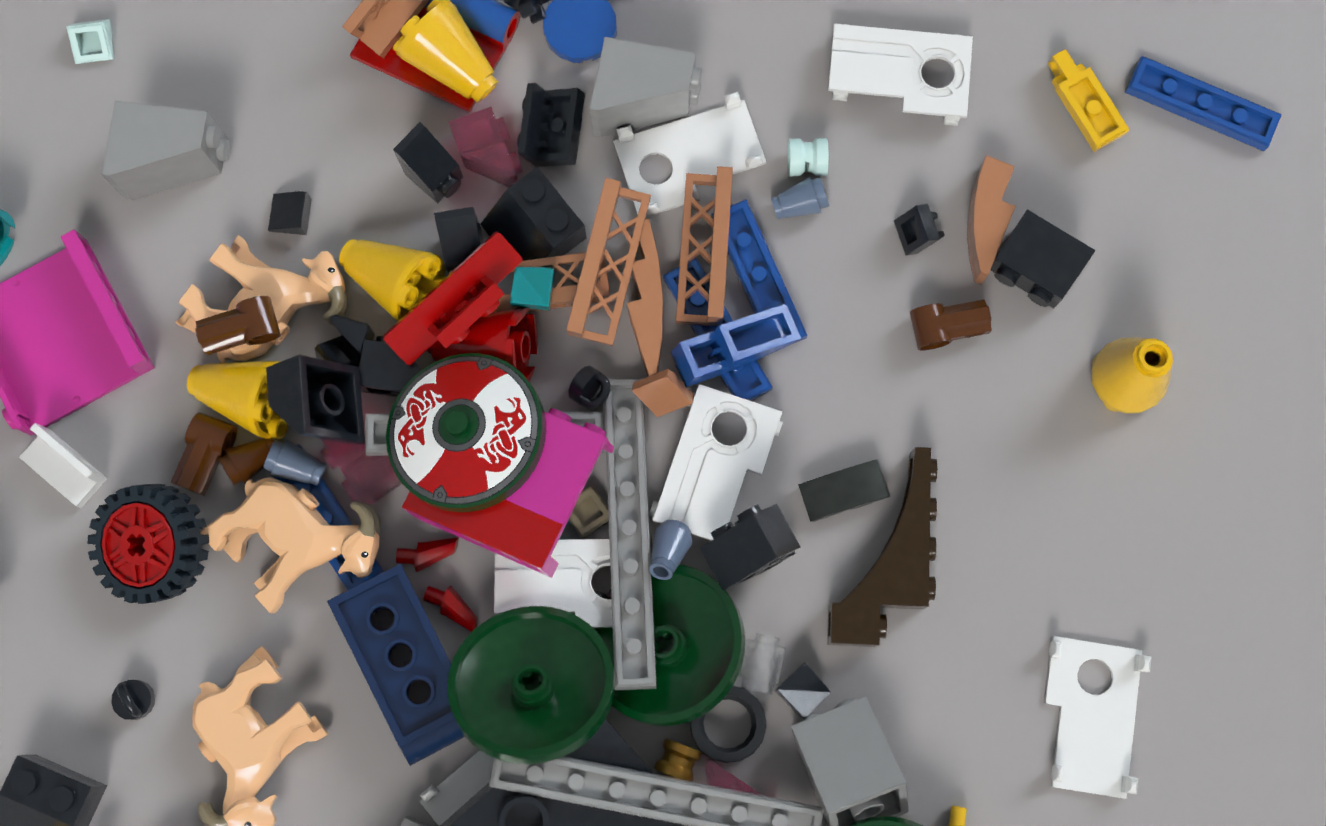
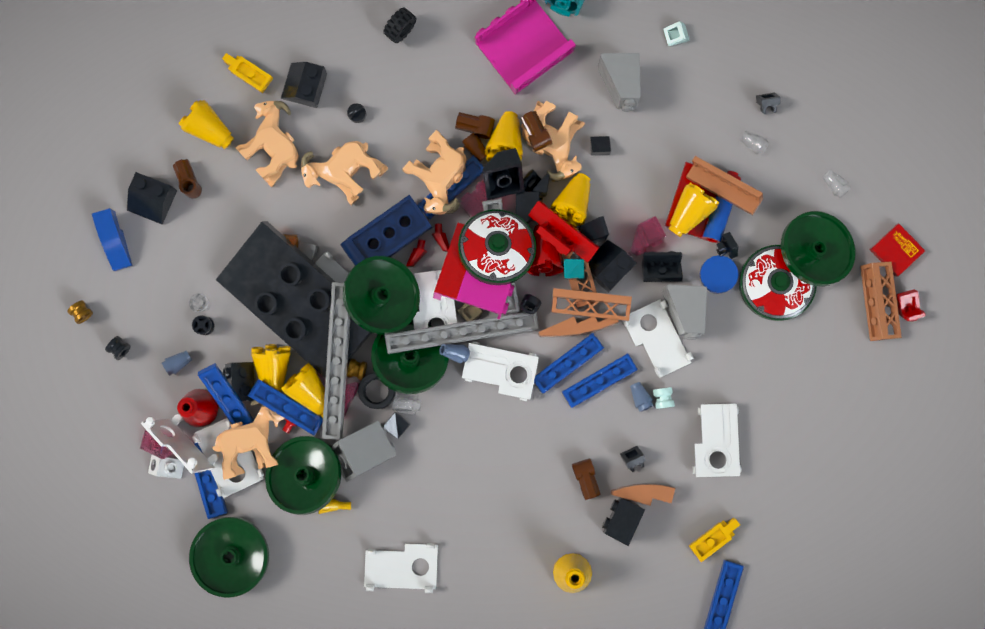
camera: 85 degrees right, 5 degrees up
(62, 466) = (461, 60): white panel -> none
(148, 543) = (428, 107): wheel -> none
(293, 463) = (474, 168): sand blue cone -> none
(428, 164) = (632, 209): black slope -> none
(663, 392) = (532, 340): nougat piece -> none
(719, 242) = (609, 358): nougat fence -> none
(734, 344) = (560, 372): blue slope -> none
(750, 547) = (458, 390): black brick -> none
(844, 490) = (495, 434): pearl dark grey slope -> none
(902, 569) = (459, 466): dark brown arch -> none

